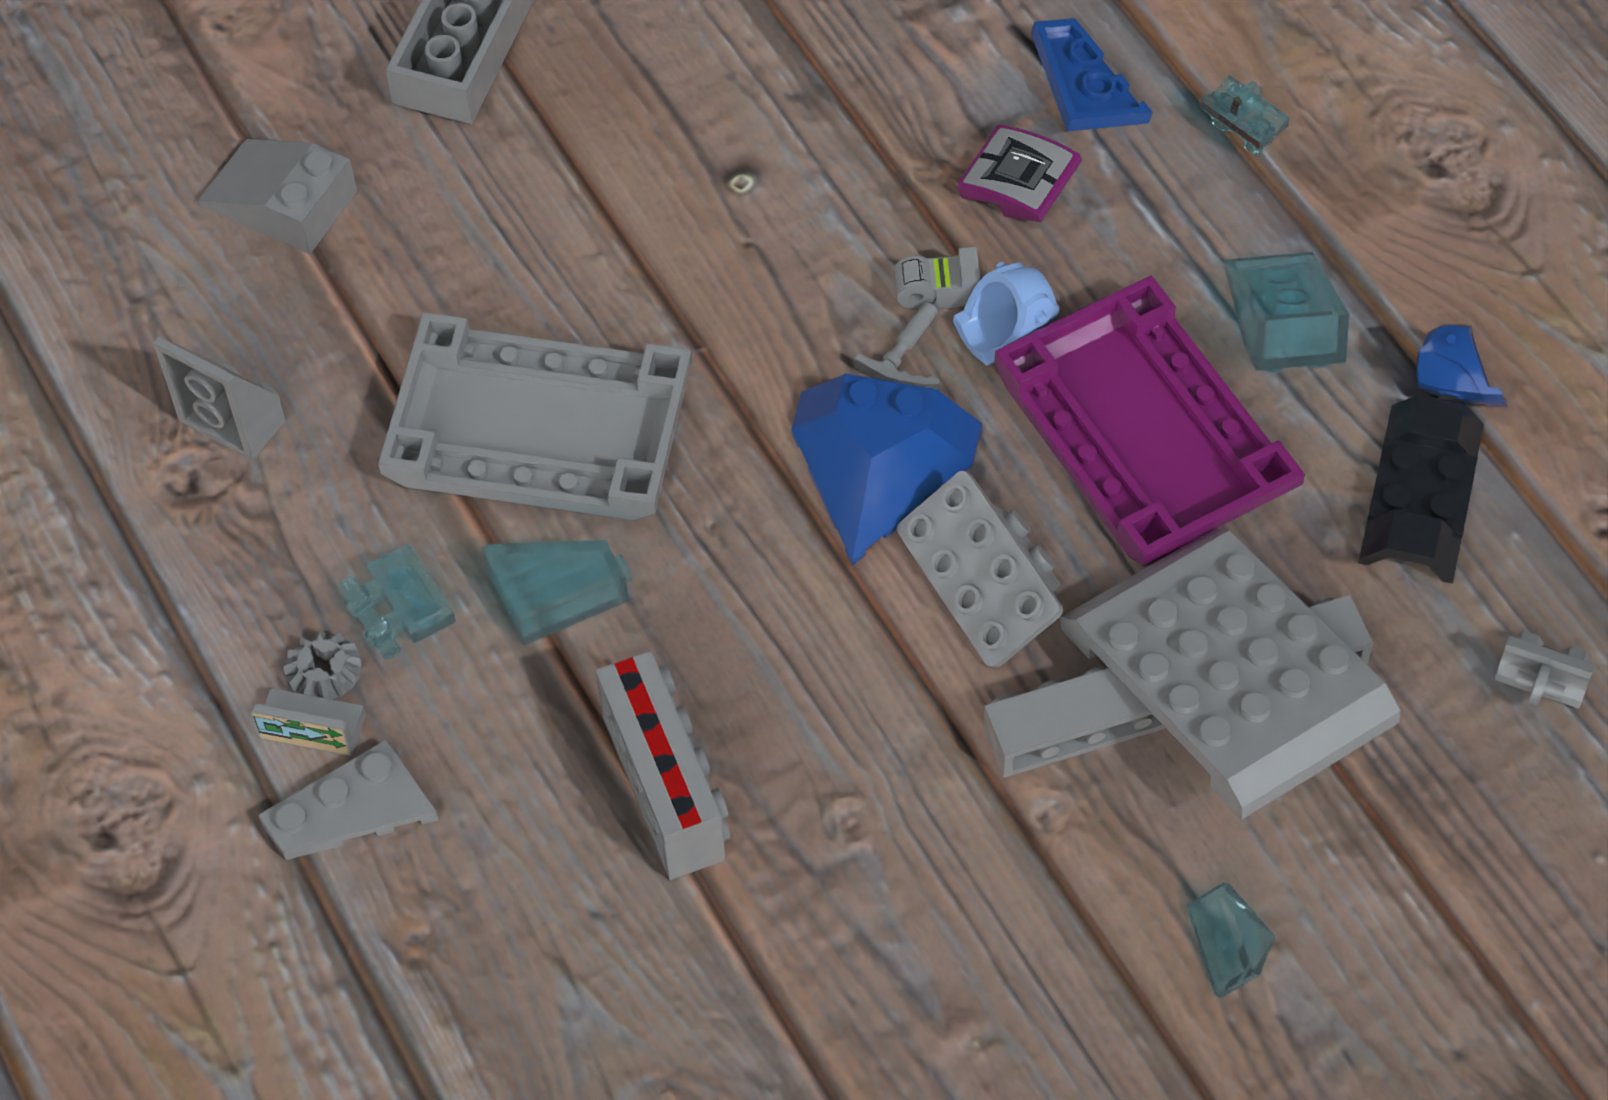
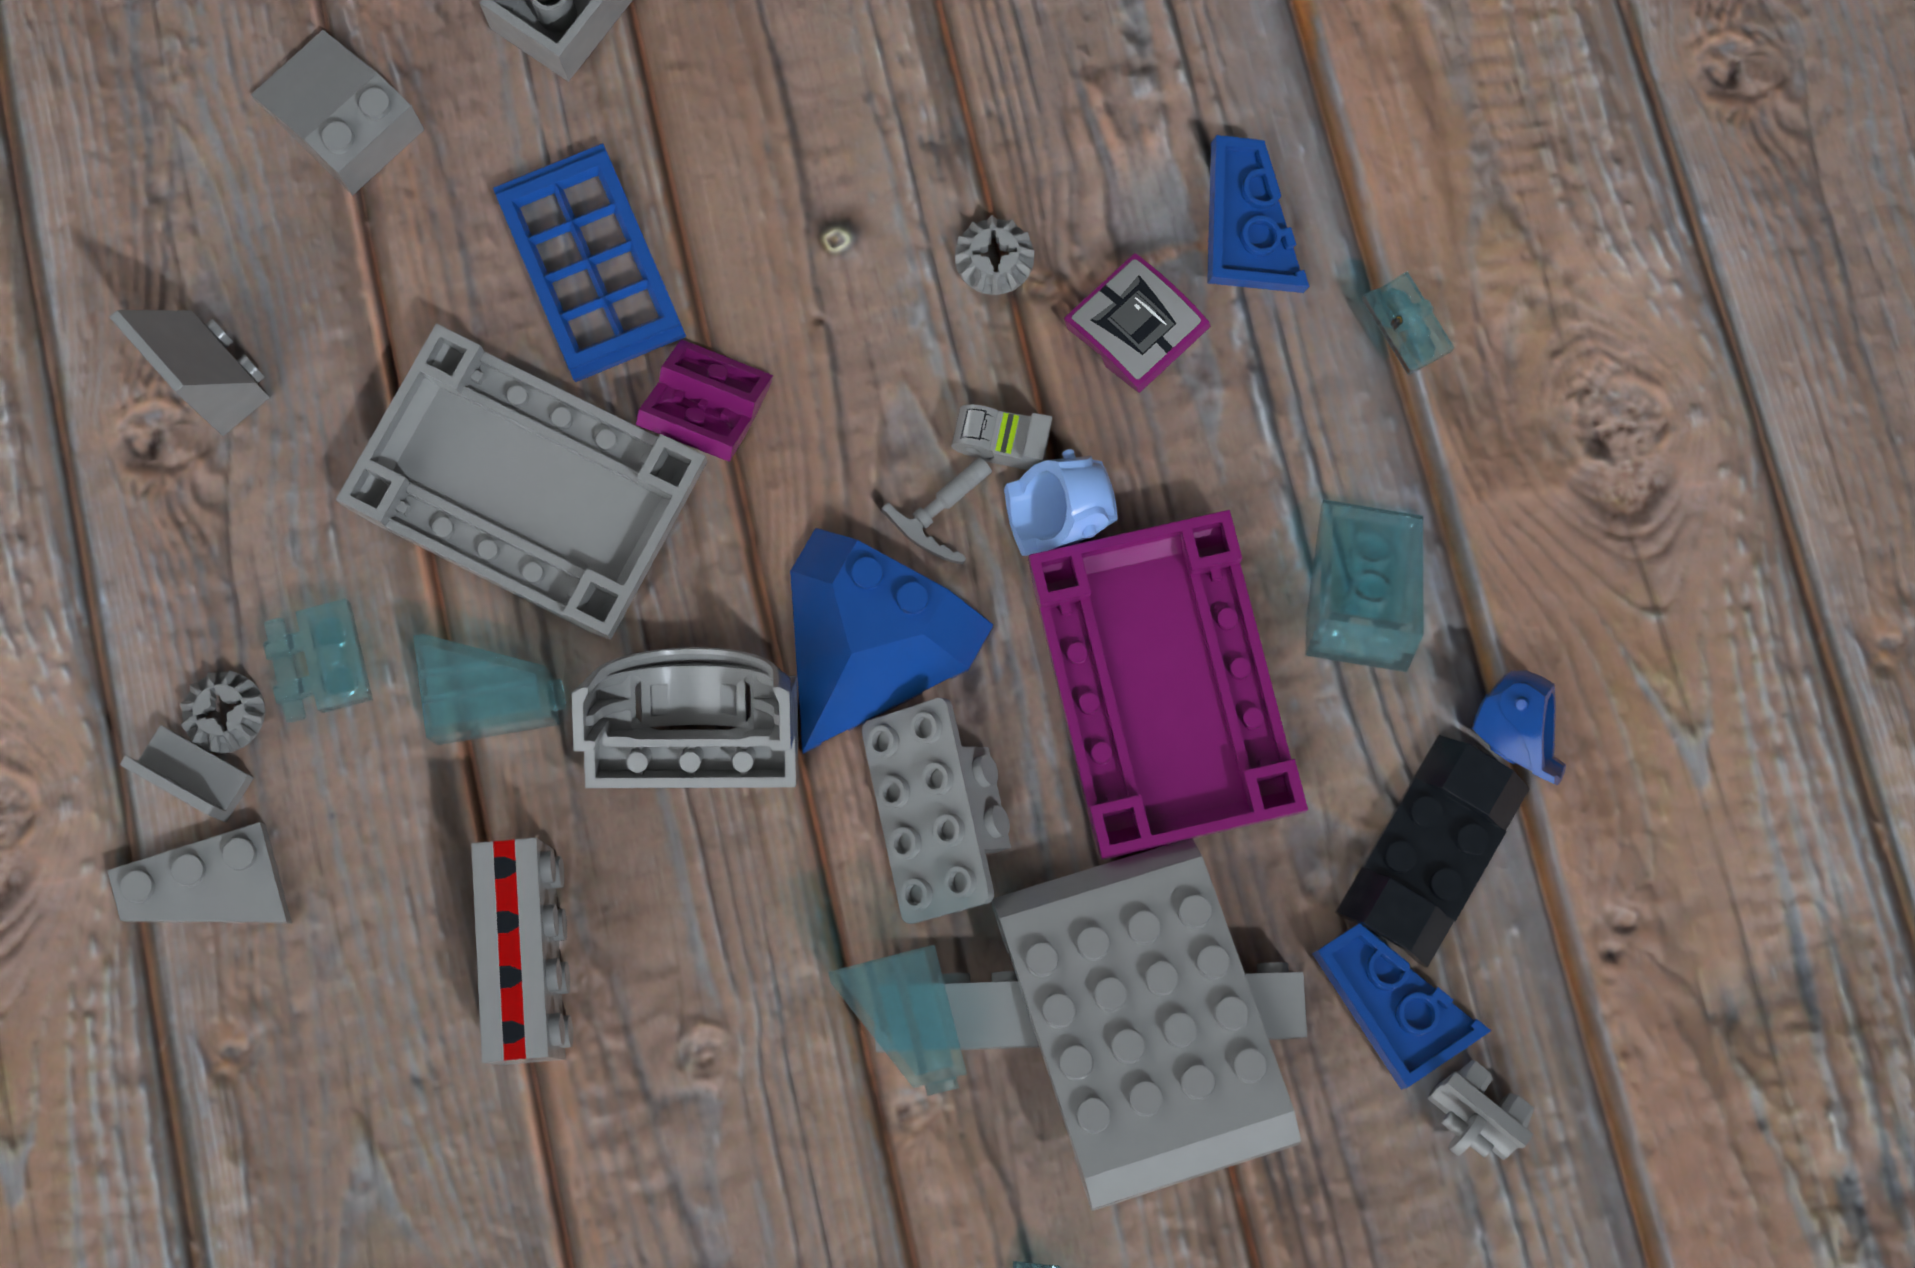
camera: 15 degrees right, 20 degrees up
(536, 248) = (589, 262): none -> blue piece
(672, 318) = (704, 400): none -> magenta slope
(750, 550) = (687, 689): none -> light grey piece
(870, 168) = (977, 269): none -> light grey gear
(1022, 708) = (908, 1014): none -> clear light blue slope
(1445, 618) = (1397, 1010): none -> blue wing

